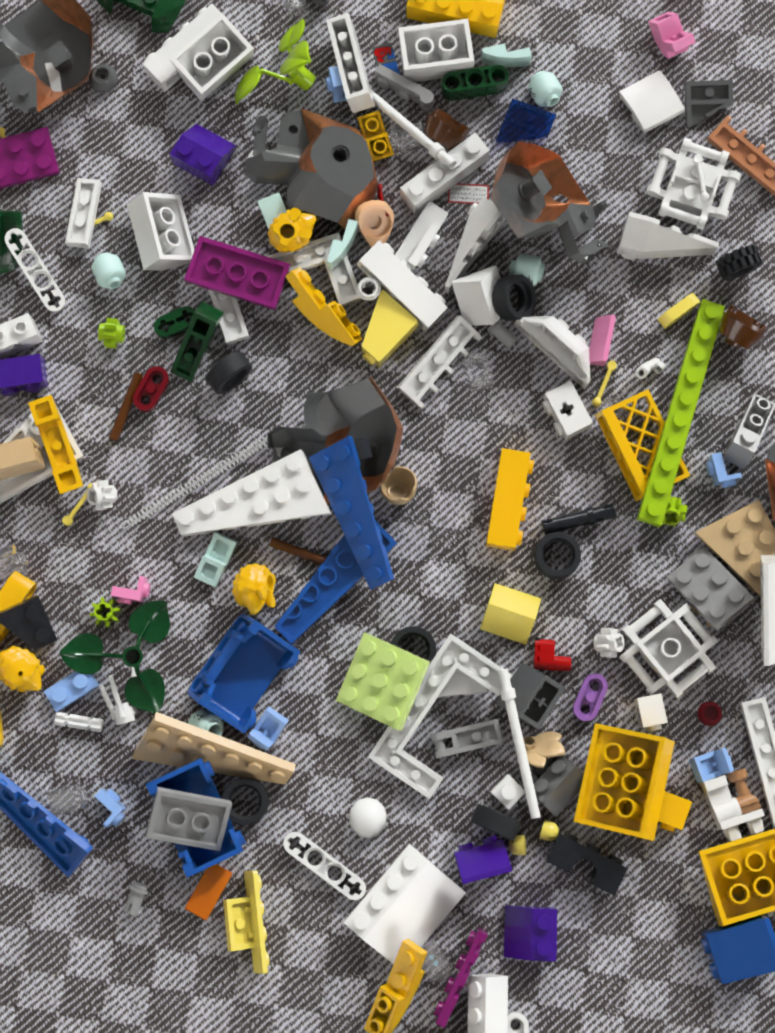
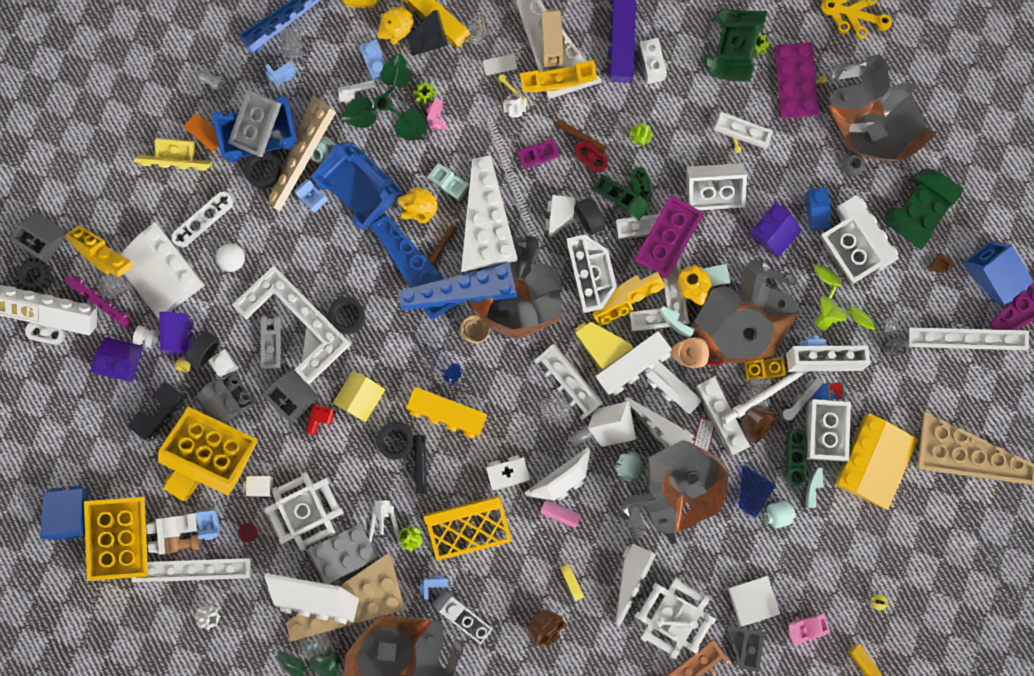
camera: 100 degrees right, 0 degrees up
(35, 270) = (702, 87): white beam -> none
(49, 527) = (499, 64): none -> white sticker
(79, 722) = (348, 61): white axle -> none
(108, 270) = (691, 140): light aqua head -> none
(158, 454) = (538, 154): none -> magenta slope
(167, 107) = (818, 209): none -> blue slope
(230, 411) = (561, 213): none -> white slope
(301, 357) = (591, 272): none -> white wedge
(367, 284) = (635, 332): white cone -> none
(383, 681) = (326, 286): yellowish green plate -> none
(462, 499) = (452, 374): none -> clear blue hinge
(493, 905) = (145, 336): none -> white wheel
(508, 695) = (292, 376): white bar -> none
(526, 297) = (609, 438): black tyre -> none
(542, 747) = (250, 398): tan plate -> none
(549, 831) = (188, 389): light yellow hinge -> none
(590, 697) = (280, 443): medium lavender plate -> none
(608, 642) = (318, 465): white gear -> none
(611, 366) = (538, 518): light yellow hinge -> none
(644, 553) = (382, 510): none -> white plant
(649, 366) = (530, 545): white arm -> none
(680, 413) = (487, 563): lime plate -> none
(739, 262) = (600, 639): black tyre -> none

